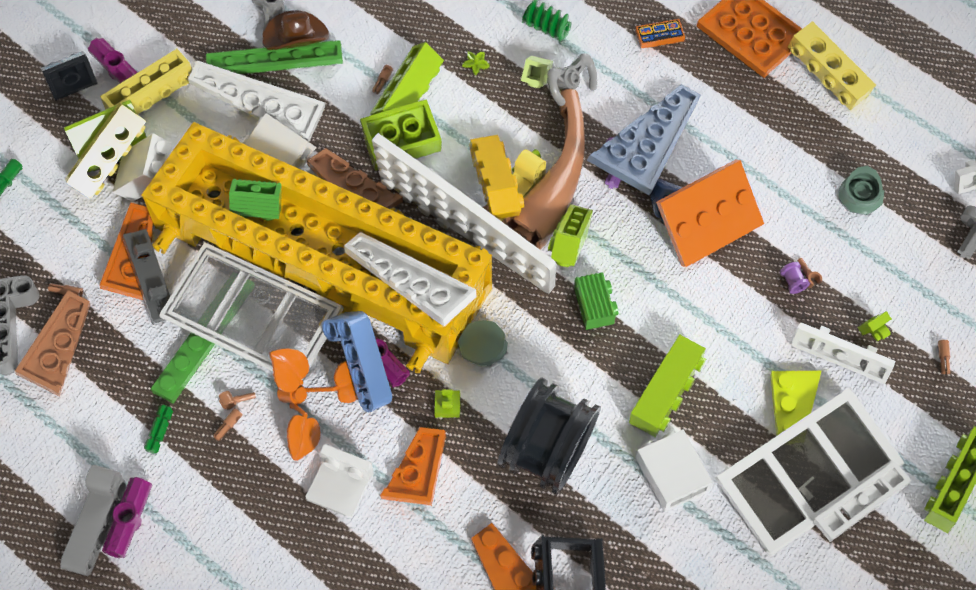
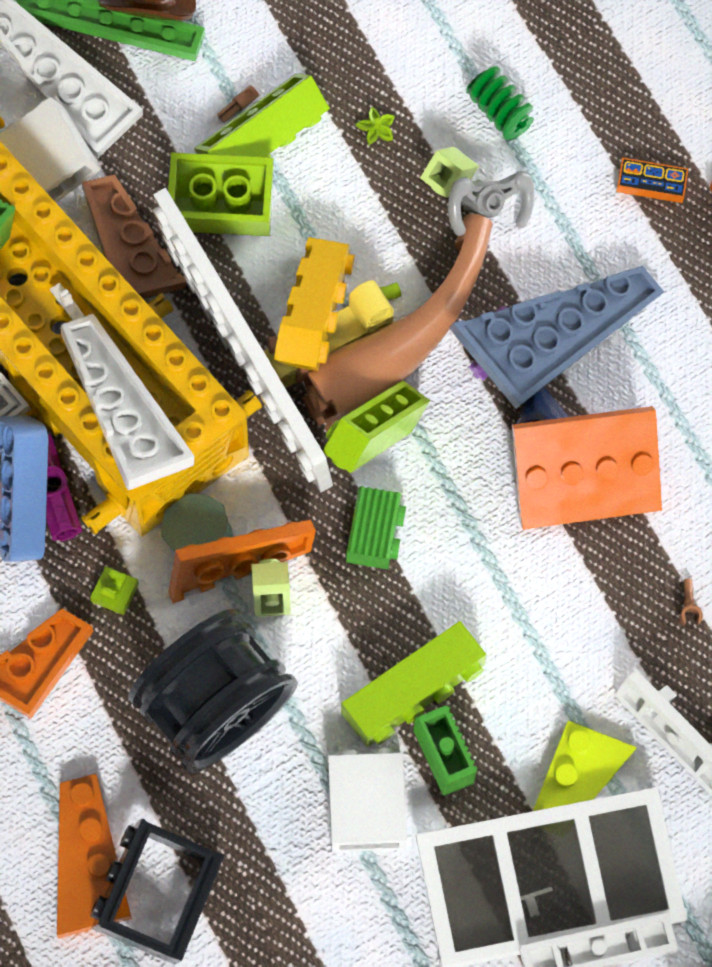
camera: 20 degrees right, 5 degrees up
(337, 231) = (66, 301): none -> white piece
(518, 350) = (205, 563): none -> orange wing
(549, 361) = (271, 588): none -> yellowish green slope
(708, 417) = (445, 750): none -> bright green brick
(794, 277) = (664, 603): medium lavender bush -> none

